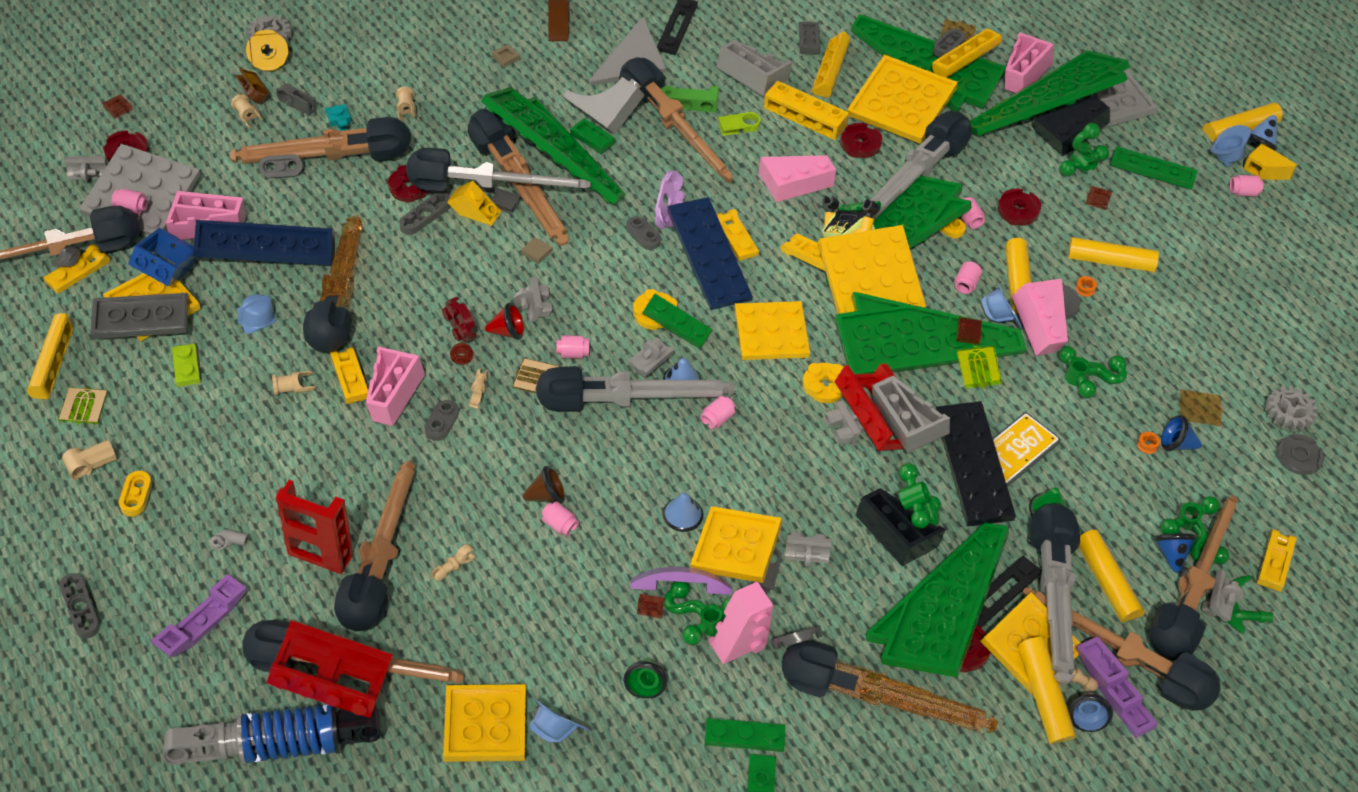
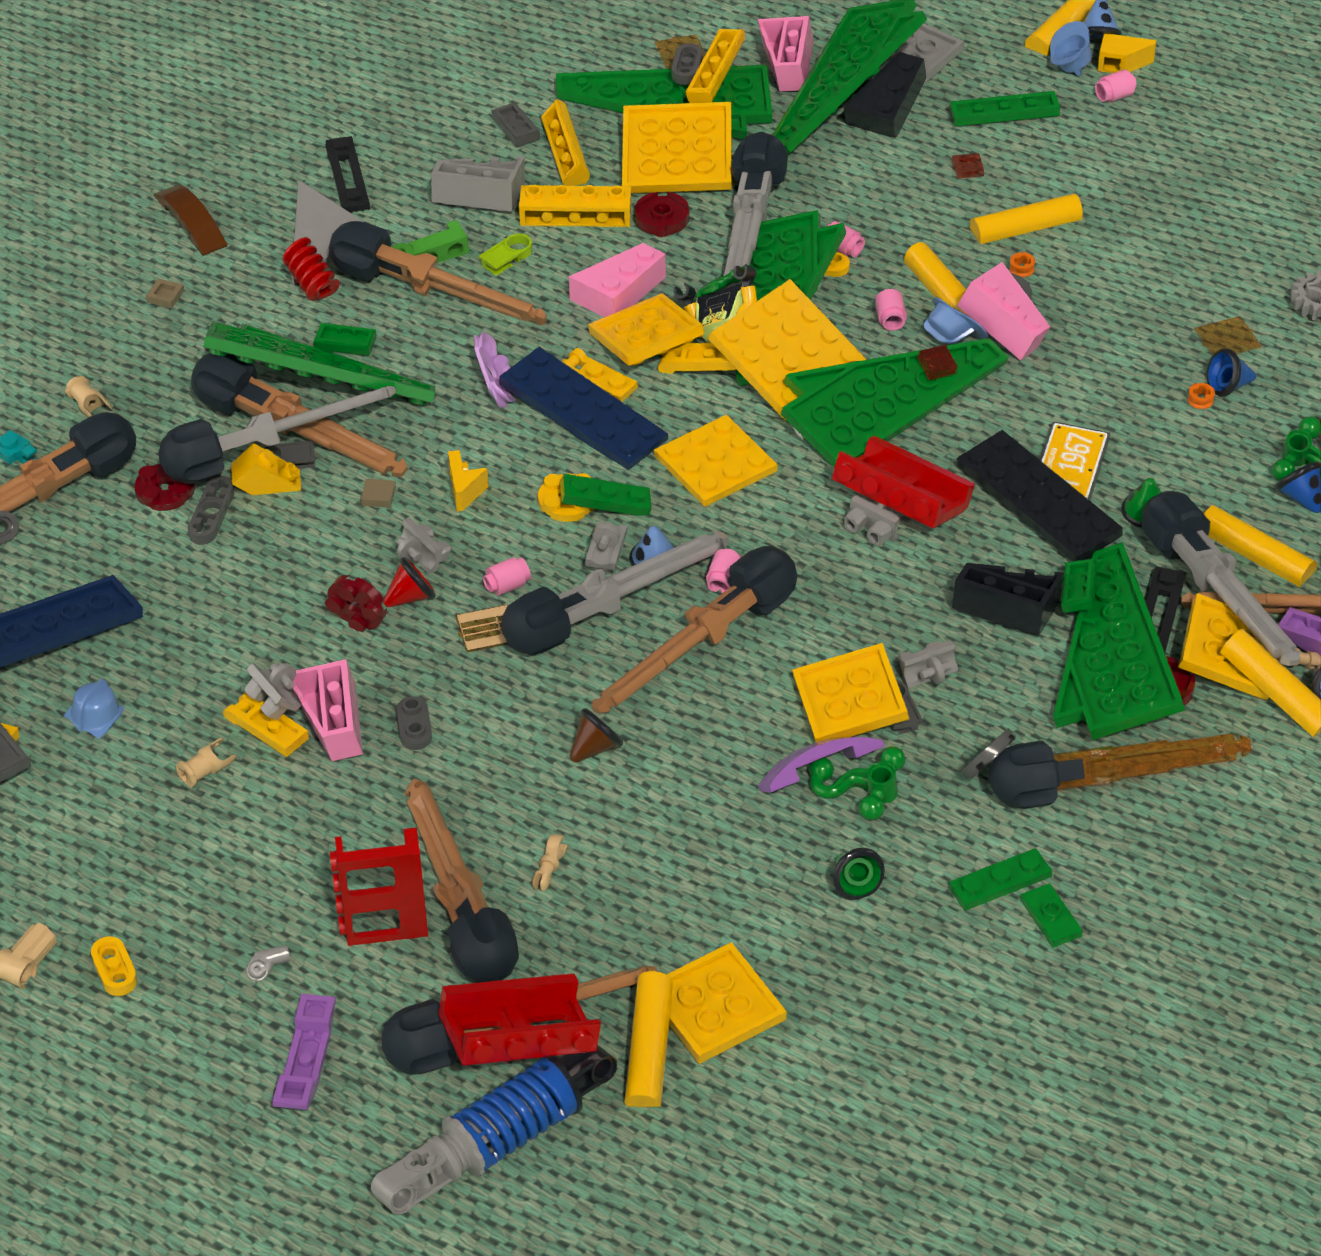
camera: 25 degrees left, 5 degrees down
(81, 596) = (142, 1101): dark grey beam -> none
(185, 365) = (55, 803): lime plate -> none
(329, 320) = (201, 677): piece -> none
(362, 353) = (276, 684): none -> light grey hips
(418, 727) = (649, 1040): none -> yellow brick
(461, 348) = (379, 635): clear red plate -> none
(478, 387) = (429, 669): tan piece -> none
(552, 726) = (794, 965): medium blue piece -> none
(559, 518) = (634, 760): bright pink brick -> none
(594, 268) = (466, 483): none -> yellow slope
(599, 74) = (310, 270): none -> red piece
(611, 106) = (345, 298): light grey arch -> none
(641, 230) = (488, 420): dark grey plate -> none
(650, 606) = (805, 800): clear red tile -> none
(683, 513) = (763, 692): medium blue hat -> none
(732, 431) = (757, 583): none -> piece
(745, 624) = (929, 765): bright pink wedge -> none
(788, 217) = (646, 329): none -> yellow plate
(816, 388) = (819, 474): yellow plate -> none
(907, 415) = (947, 473): light grey wedge -> none
(917, 496) = (1014, 550): green piece -> none
(953, 543) = (1079, 585): none -> green plate
(979, 367) = (971, 397): clear neon green piece -> none
(1016, 216) = (890, 222): dark red plate -> none
(1080, 368) = (1080, 349): green piece -> none
(1083, 156) = (926, 123): green piece -> none

